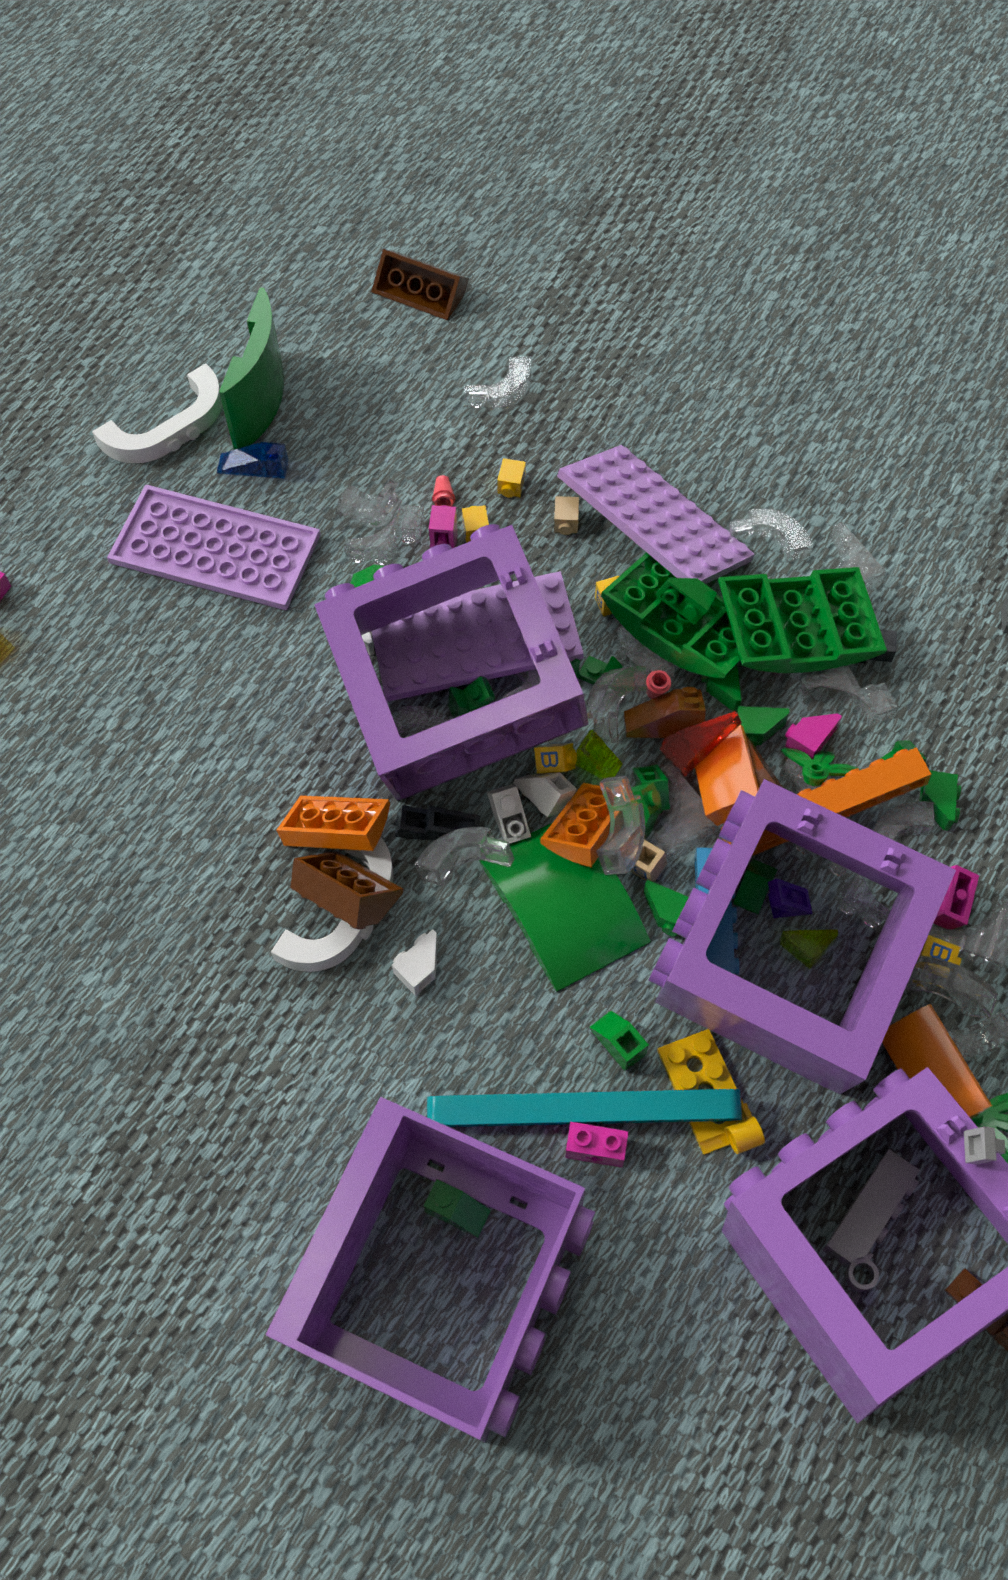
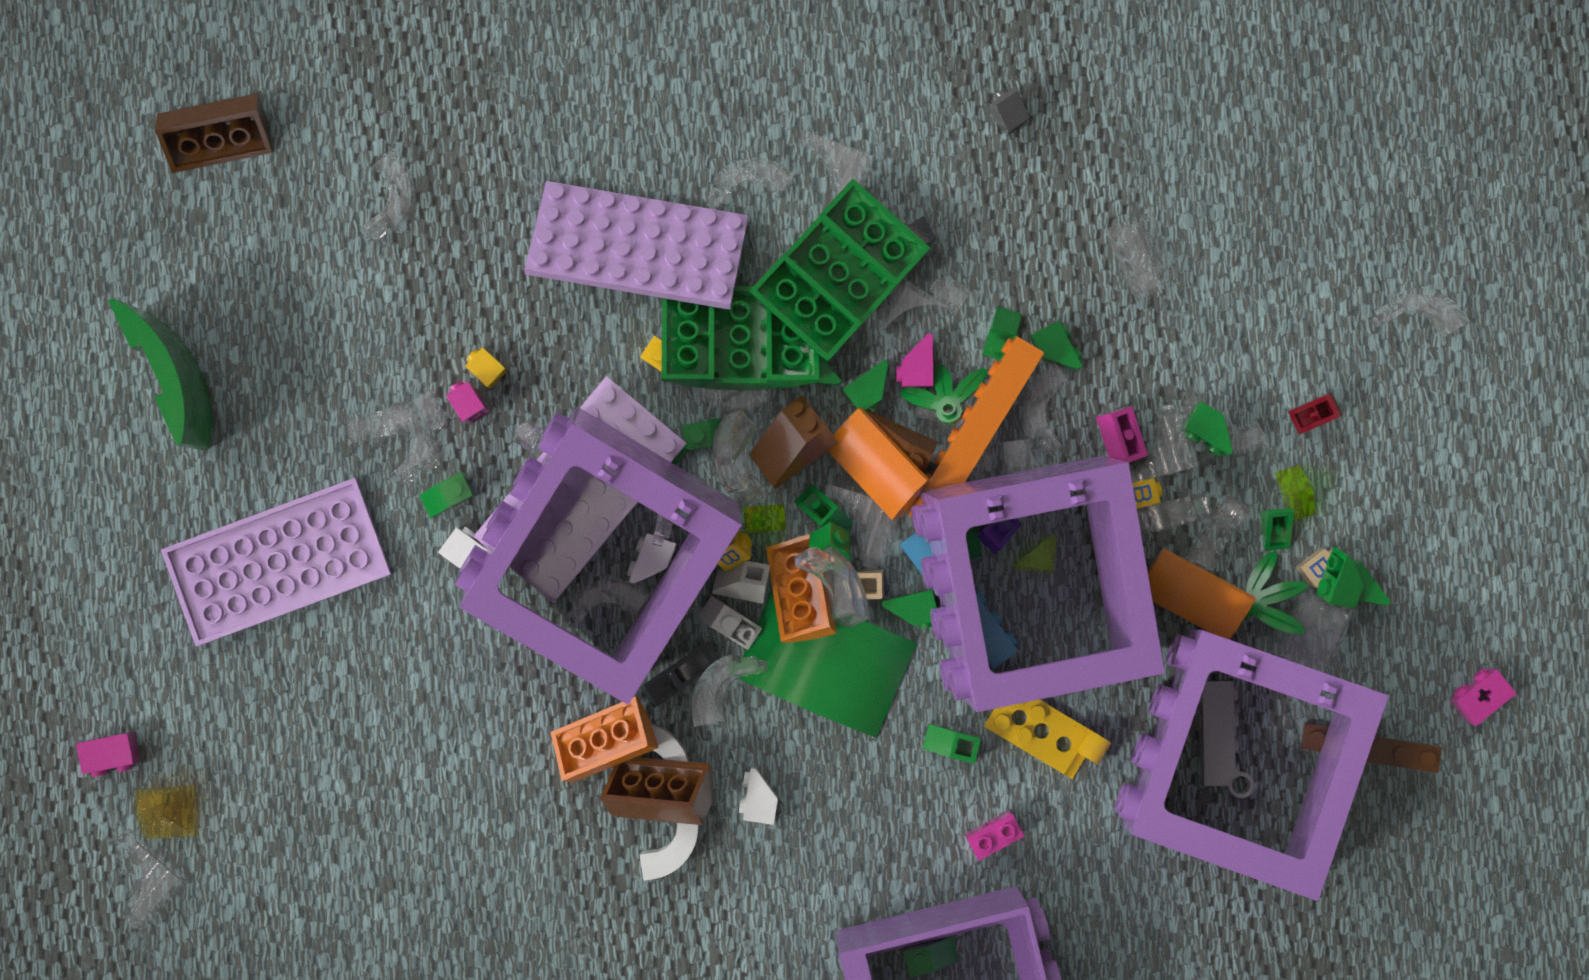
camera: 40 degrees left, 25 degrees up
(171, 433) = (135, 474): white arch -> none
(255, 460) = (233, 450): clear blue slope -> none
(443, 492) = (429, 354): coral cone -> none
(471, 698) = (621, 546): green slope -> none
(511, 478) = (478, 295): yellow brick -> none
(566, 515) = (557, 298): tan brick -> none
(586, 1108) = (966, 817): teal beam -> none
(657, 683) = (770, 416): coral cone -> none
(687, 597) = (737, 323): green slope -> none
(696, 742) = (836, 461): clear red slope -> none
(982, 1145) = (1279, 672): light grey tile -> none

